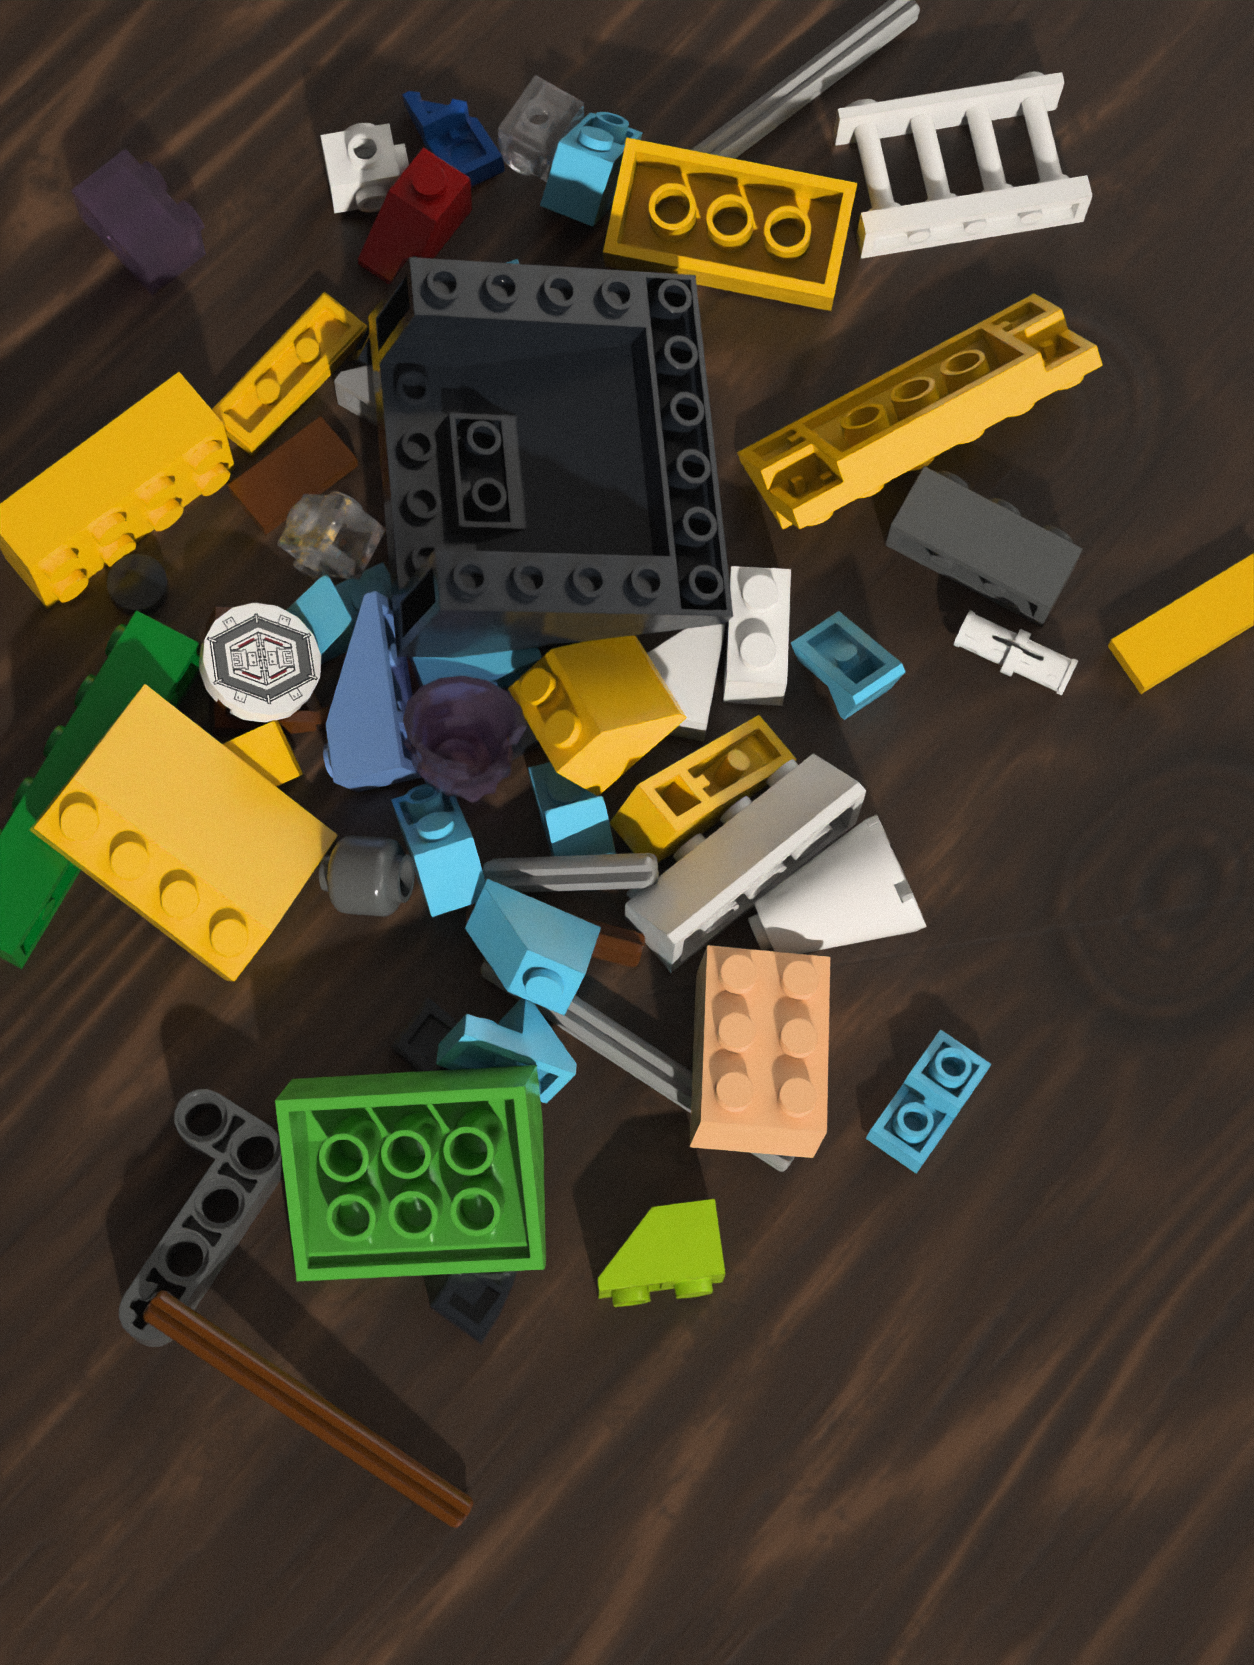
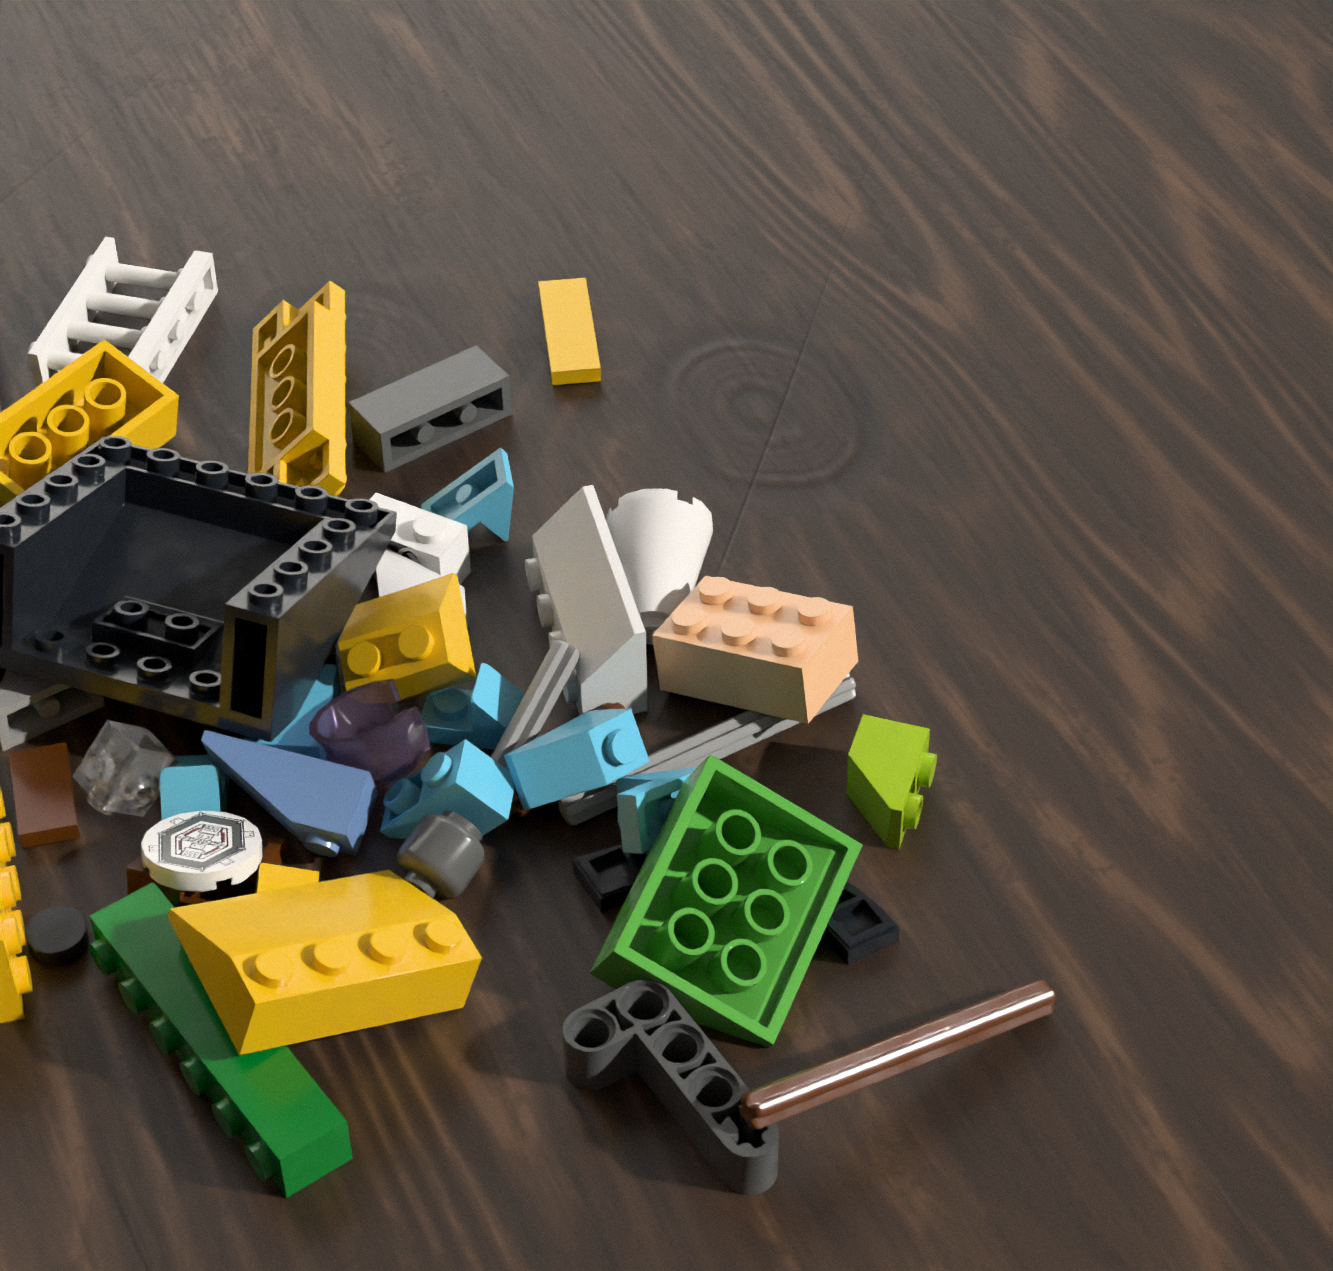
camera: 60 degrees left, 30 degrees down
(699, 789) = (512, 626): yellow slope -> none
(928, 1101) = (845, 578): medium azure slope -> none
(1015, 652) = (525, 422): white pin -> none

